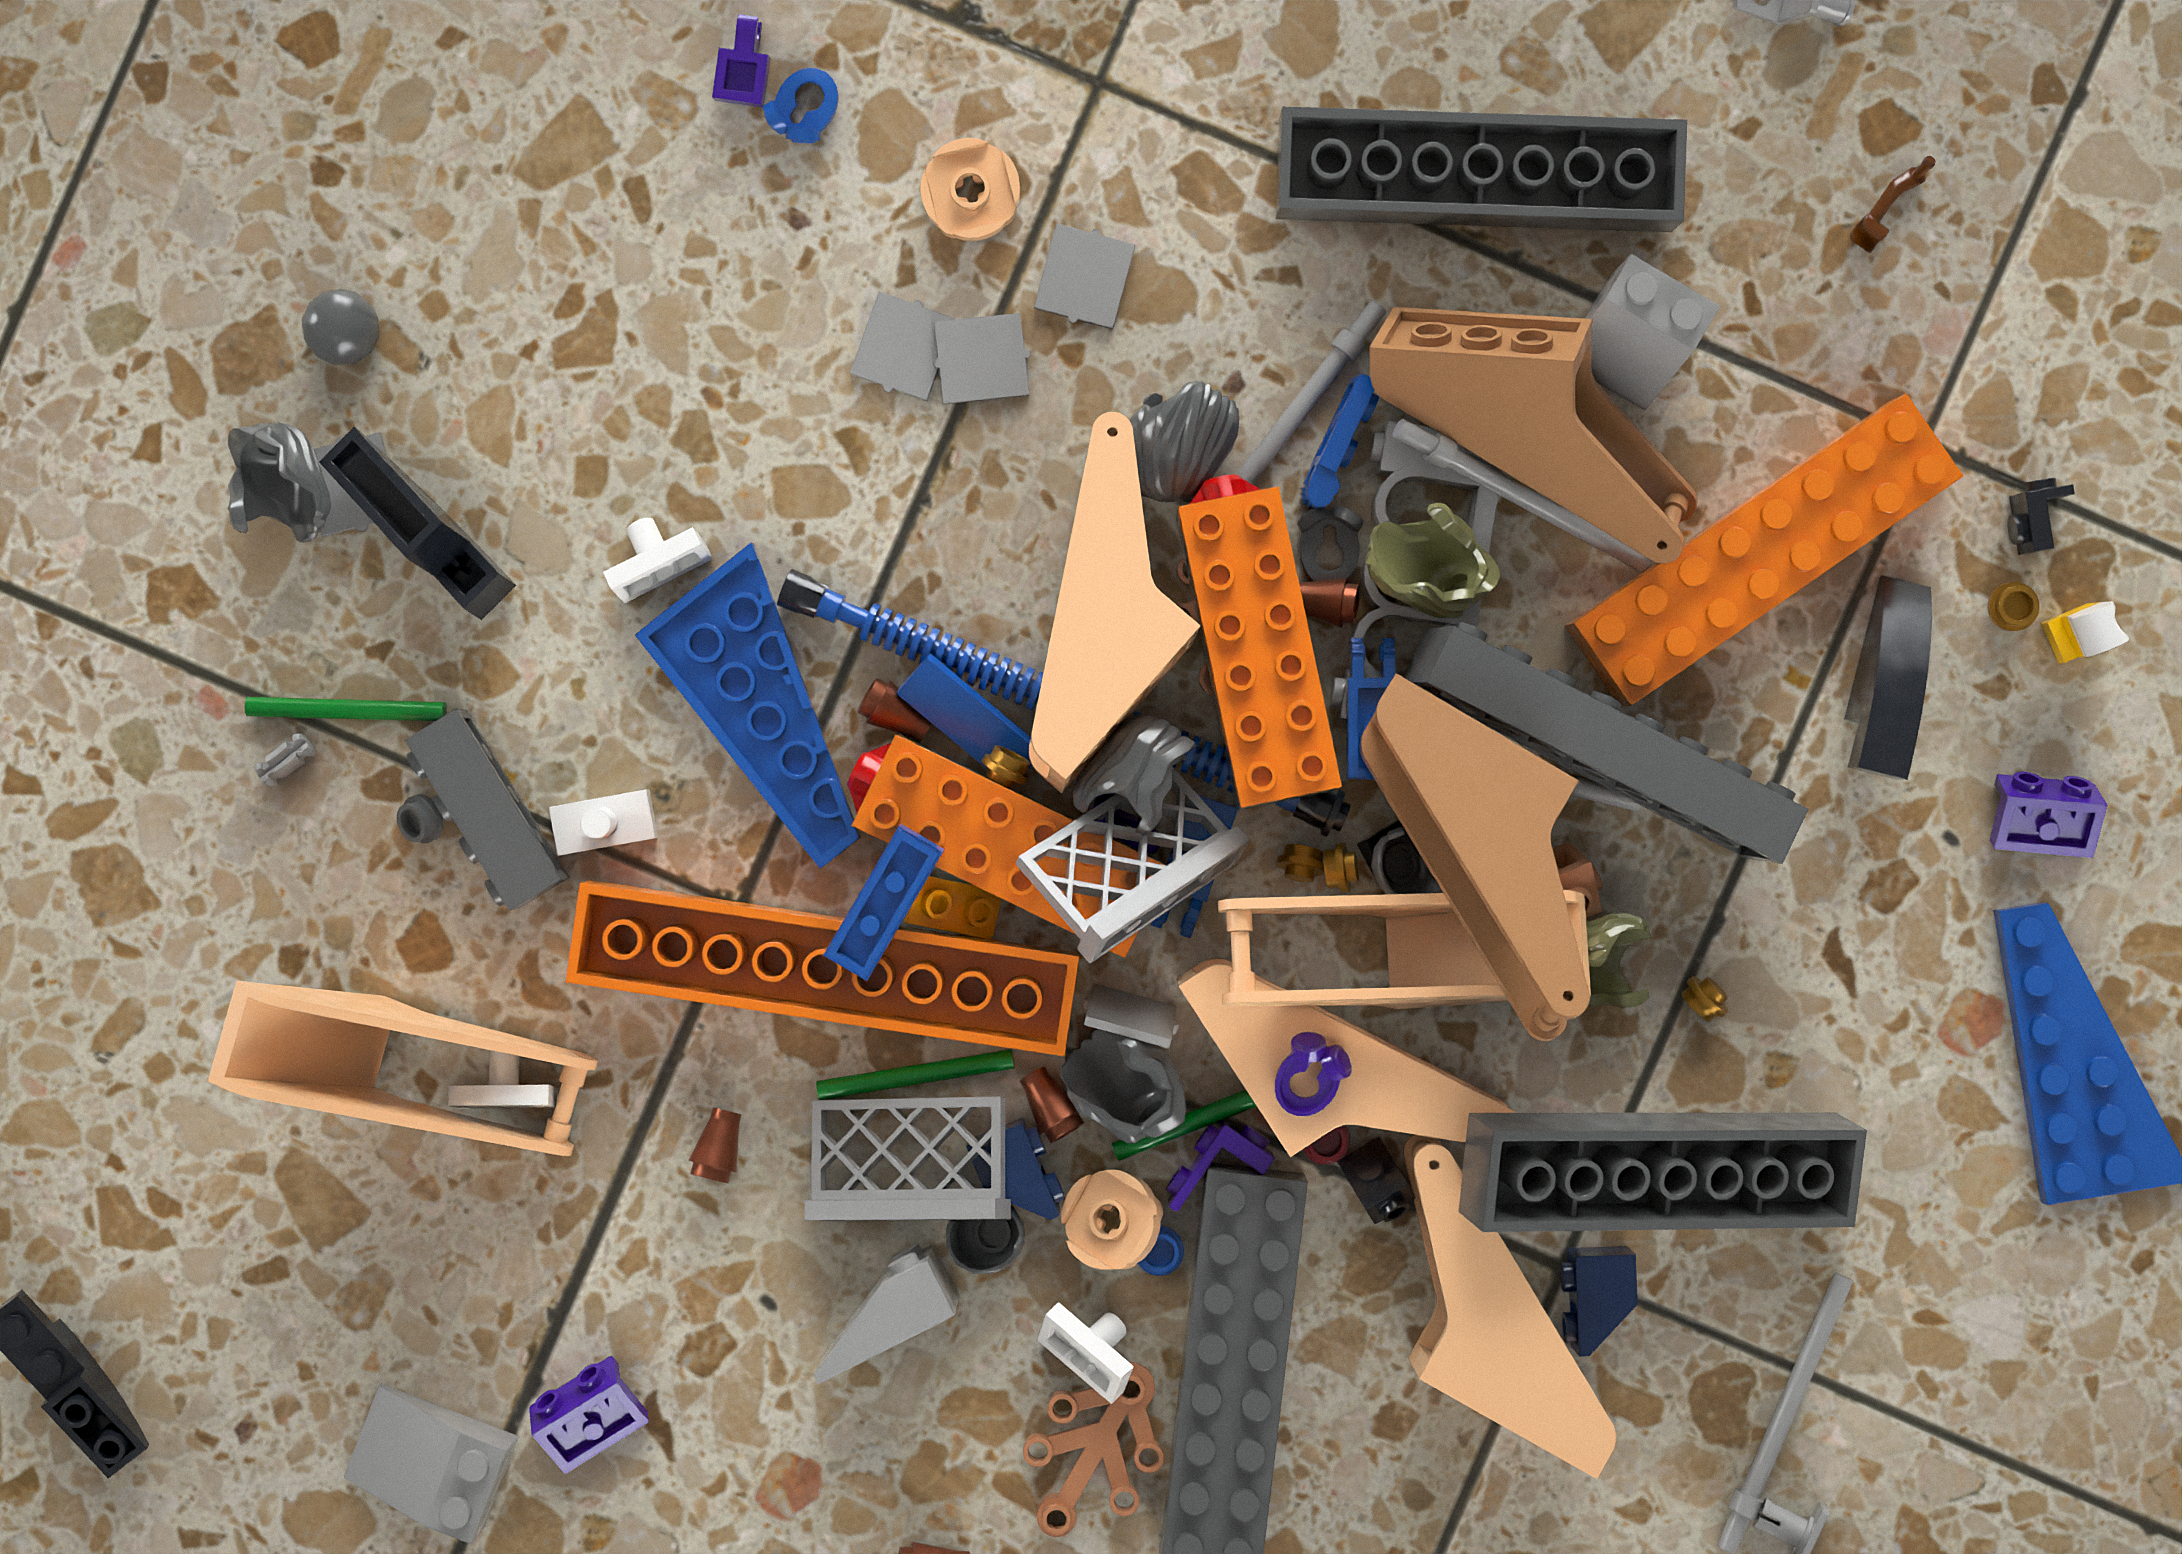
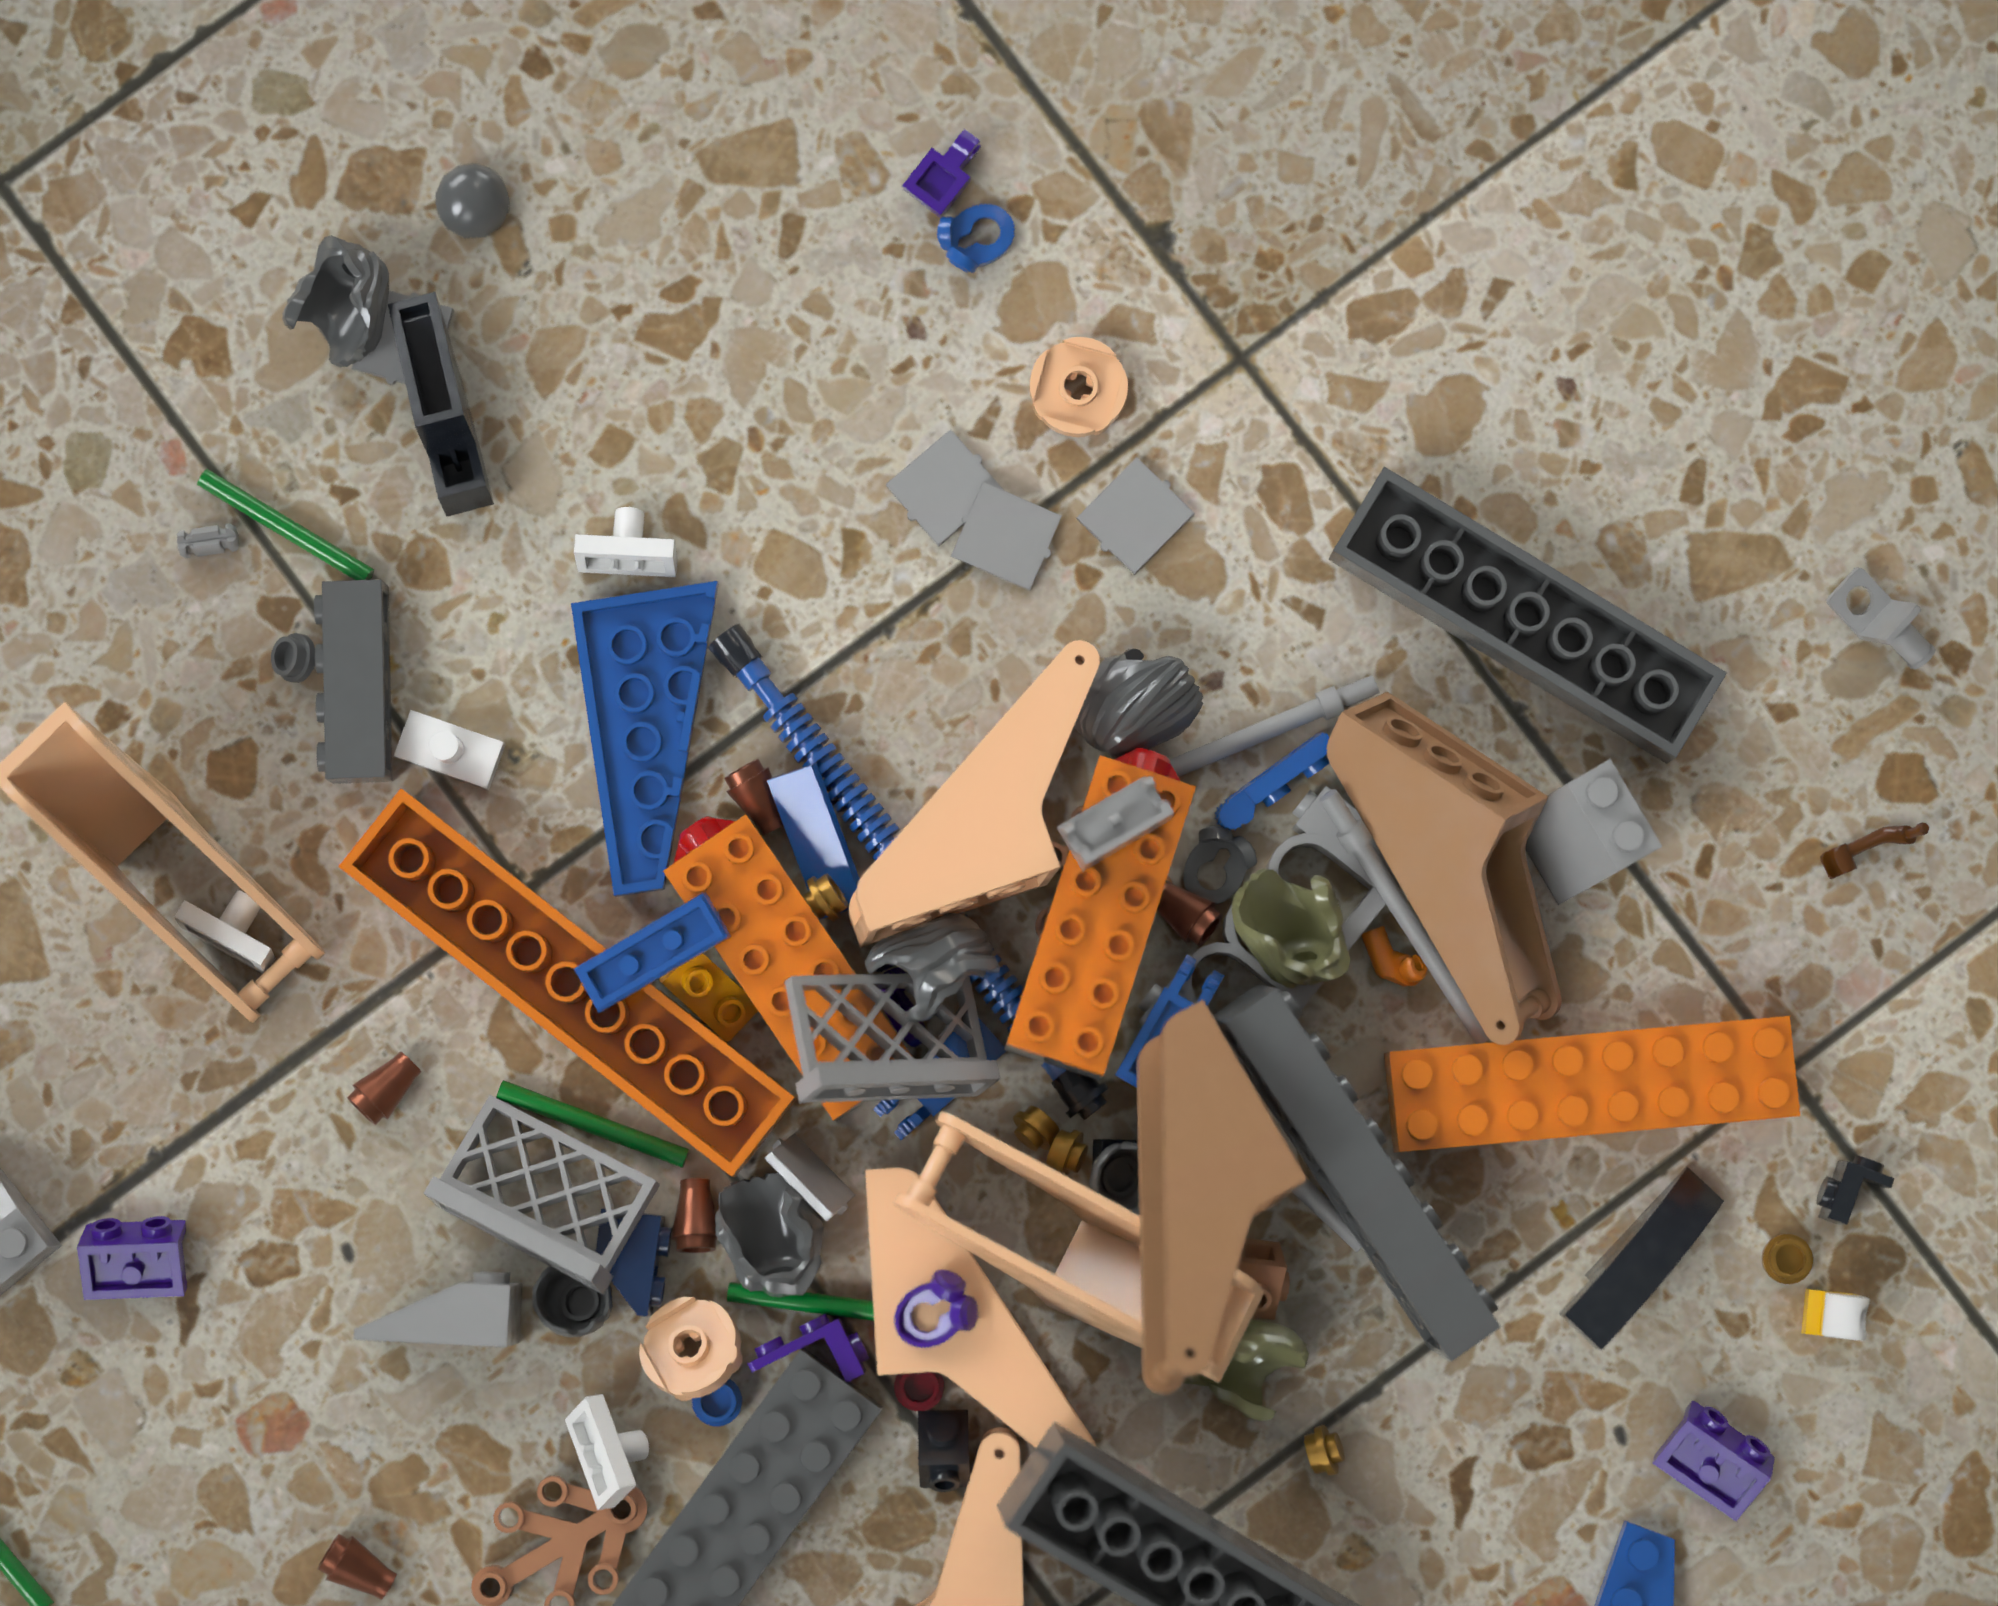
camera: 30 degrees right, 5 degrees down
(1227, 558) = (1115, 822): none -> light grey hinge
(1529, 544) = (1391, 964): none -> orange arm

